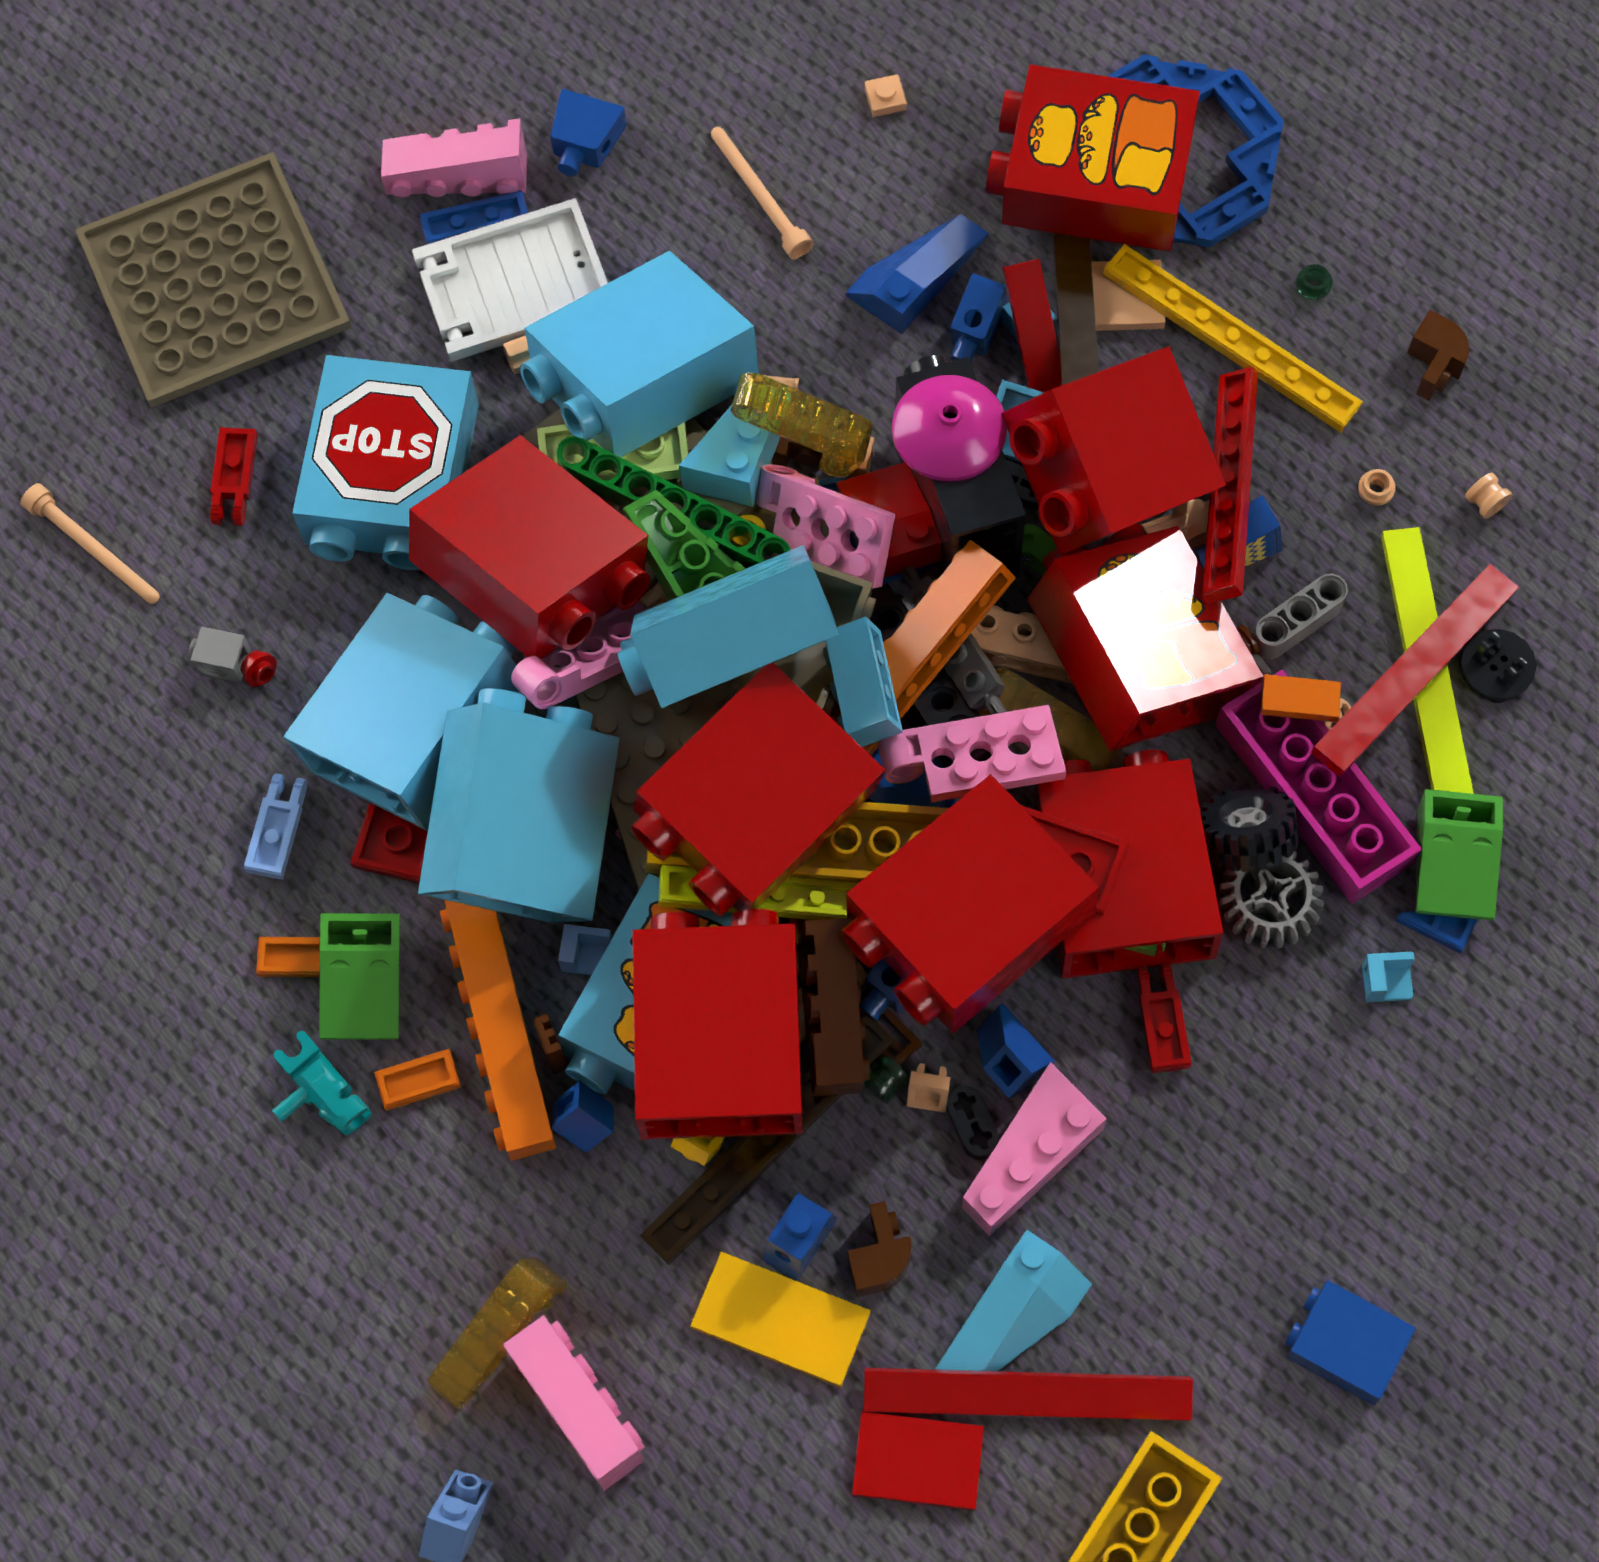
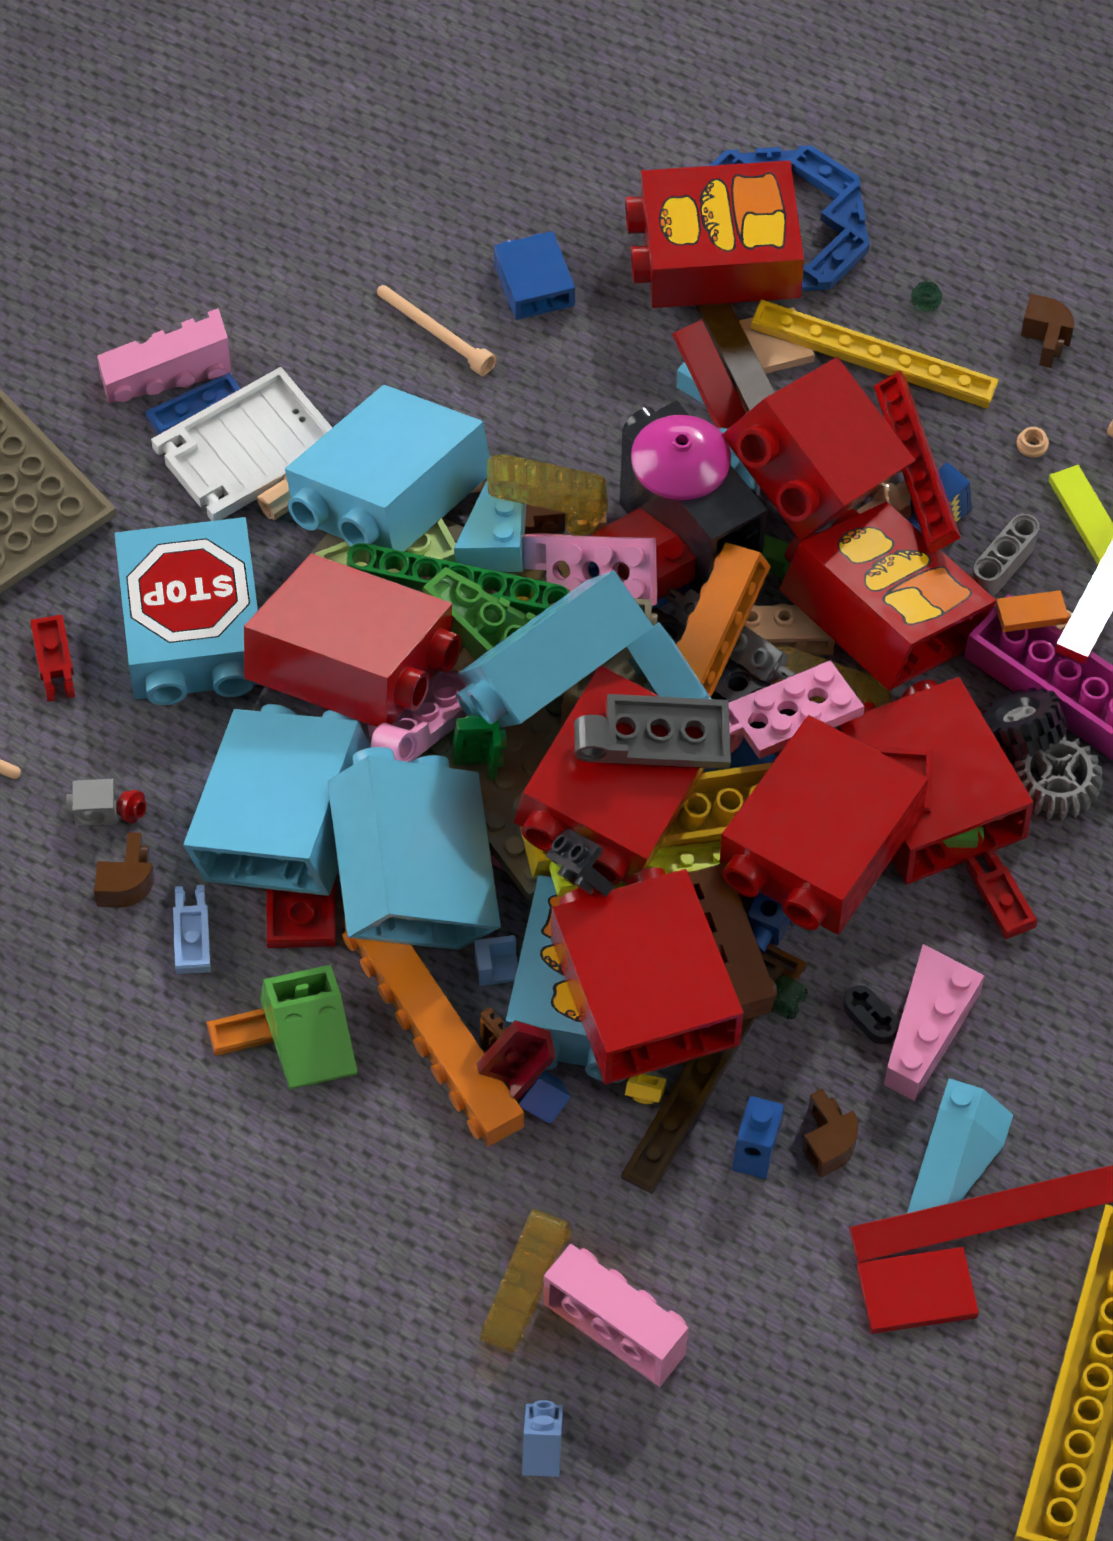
camera: 20 degrees left, 10 degrees down
(228, 754) = (128, 881): none -> reddish brown brick
(322, 1086) = (303, 1126): teal piece -> none
(417, 1079) = (385, 1101): orange tile -> none
(562, 1078) = (518, 1057): none -> dark red bracket
(584, 130) = (269, 312): blue torso -> none
(623, 705) = (479, 743): none -> green bracket
(674, 887) = (575, 858): none -> black bracket
(739, 756) = (599, 740): none -> dark grey hinge
(780, 1319) = (763, 1210): yellow tile -> none
(885, 95) = (515, 227): light nougat plate -> none
(885, 154) = (534, 275): none -> blue brick
(912, 276) = (590, 365): blue wedge -> none
(928, 1090) = (826, 997): light nougat tile -> none
(977, 317) = (659, 377): blue torso -> none
(1010, 1052) = (885, 948): blue slope -> none

